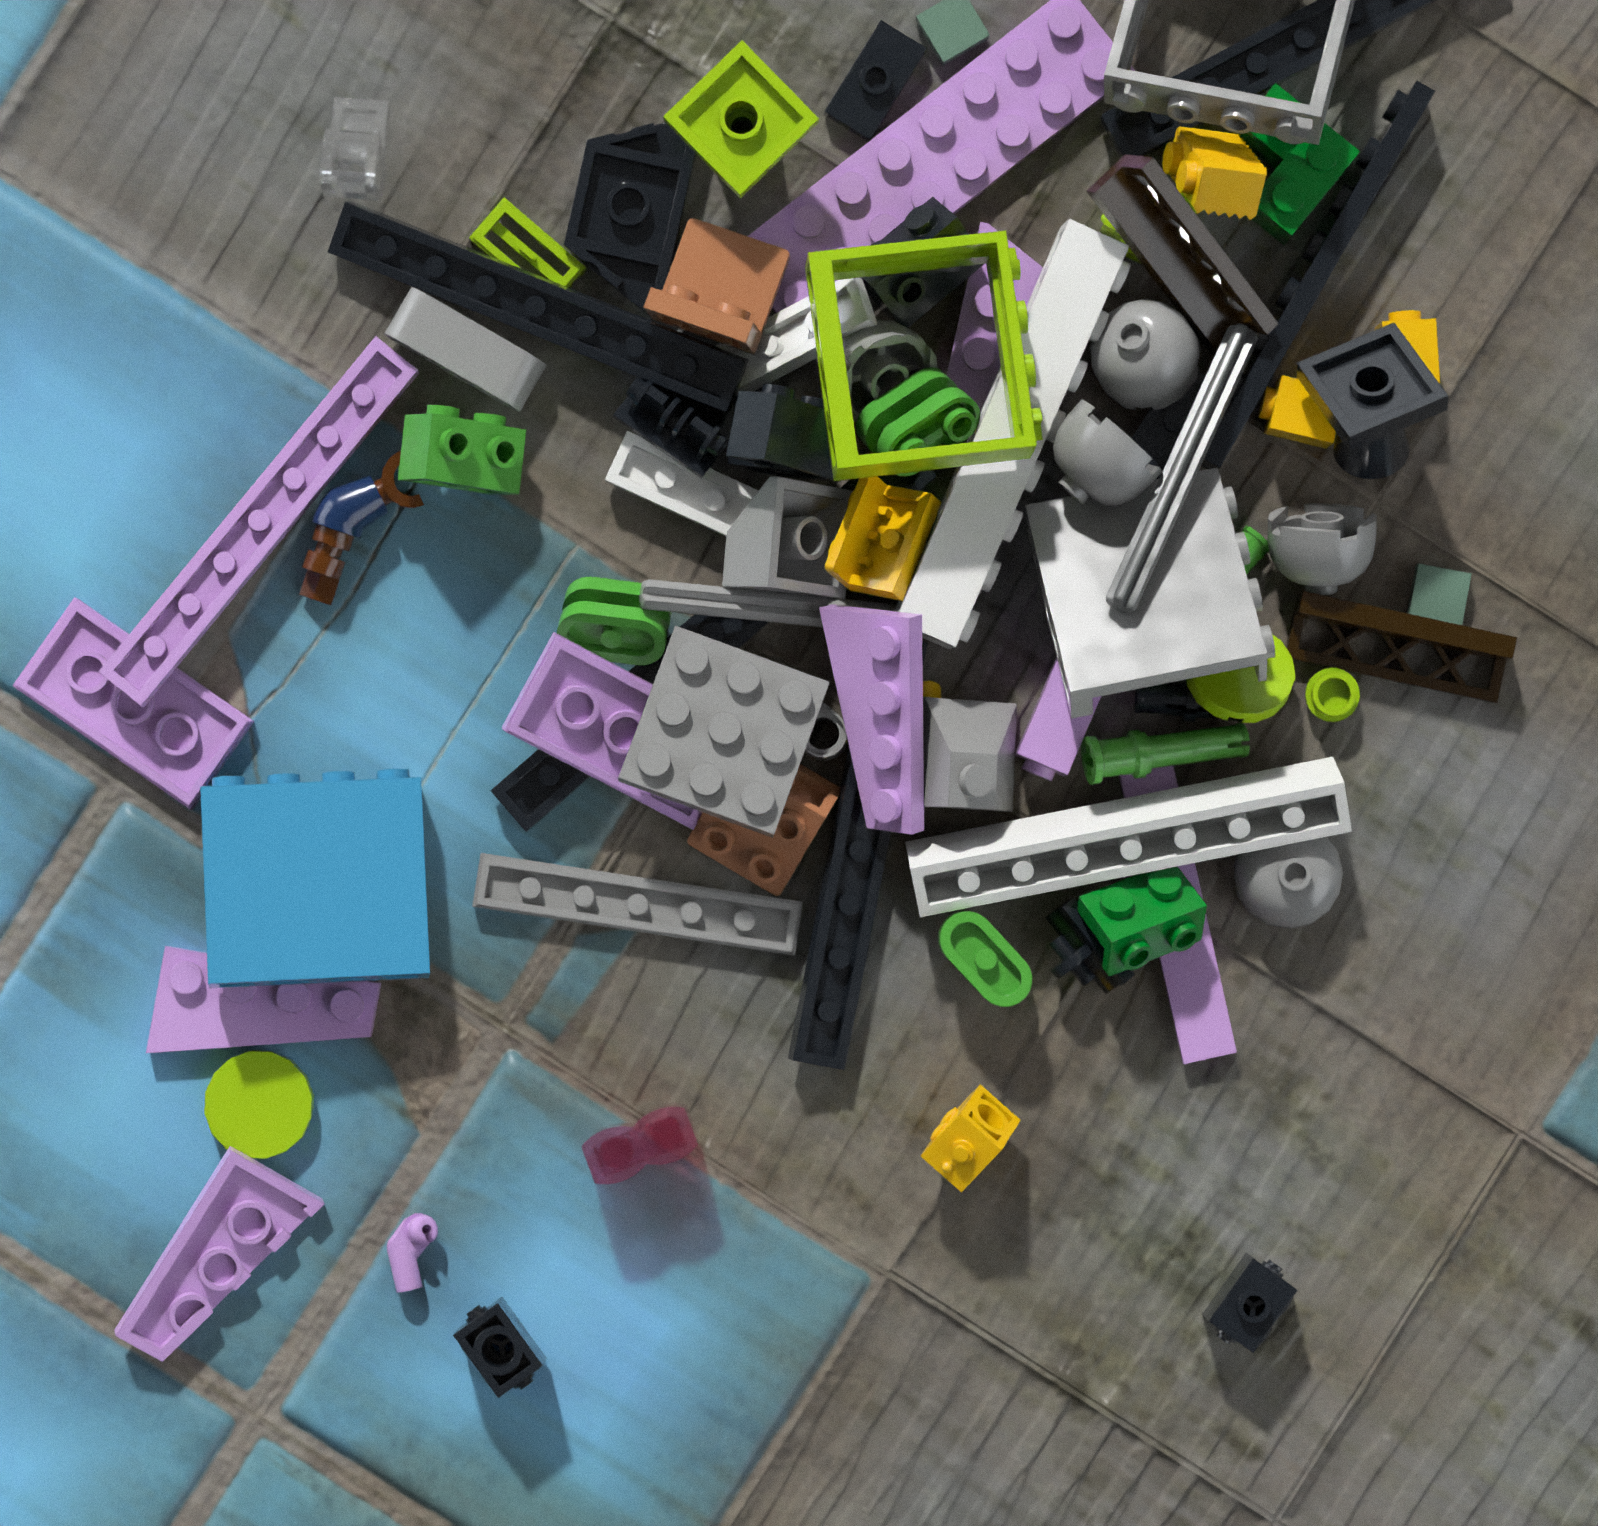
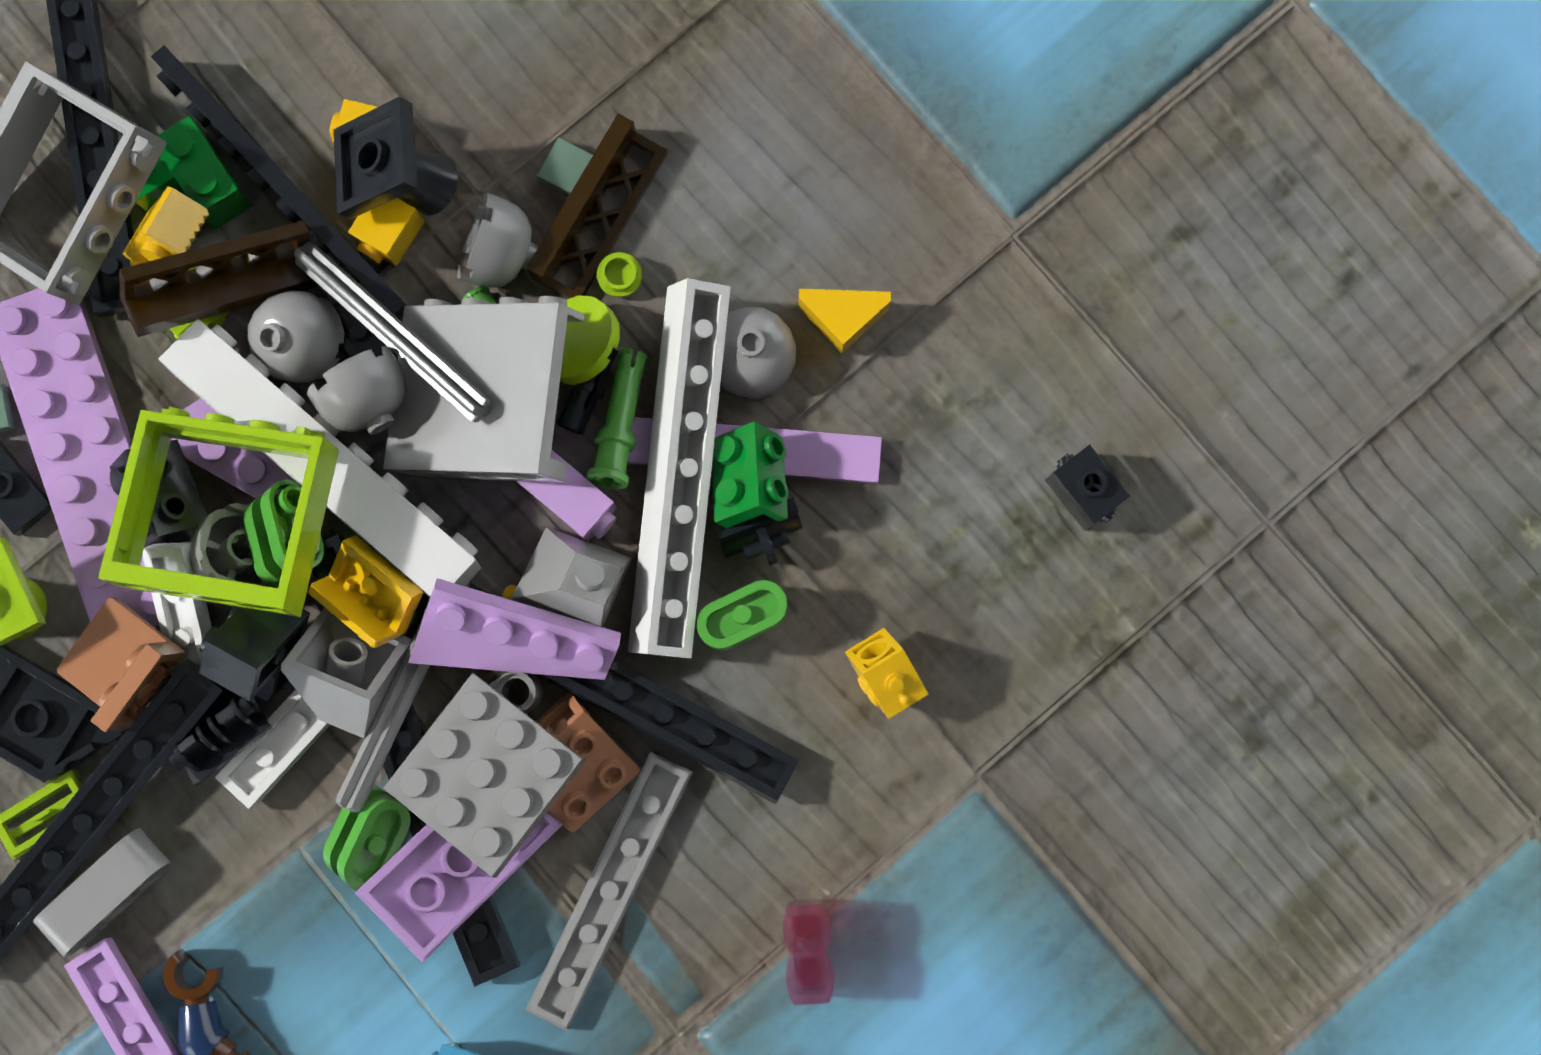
camera: 70 degrees left, 5 degrees down
(462, 452) = (181, 923): bright green brick -> none
(1364, 965) = (843, 313): none -> yellow slope

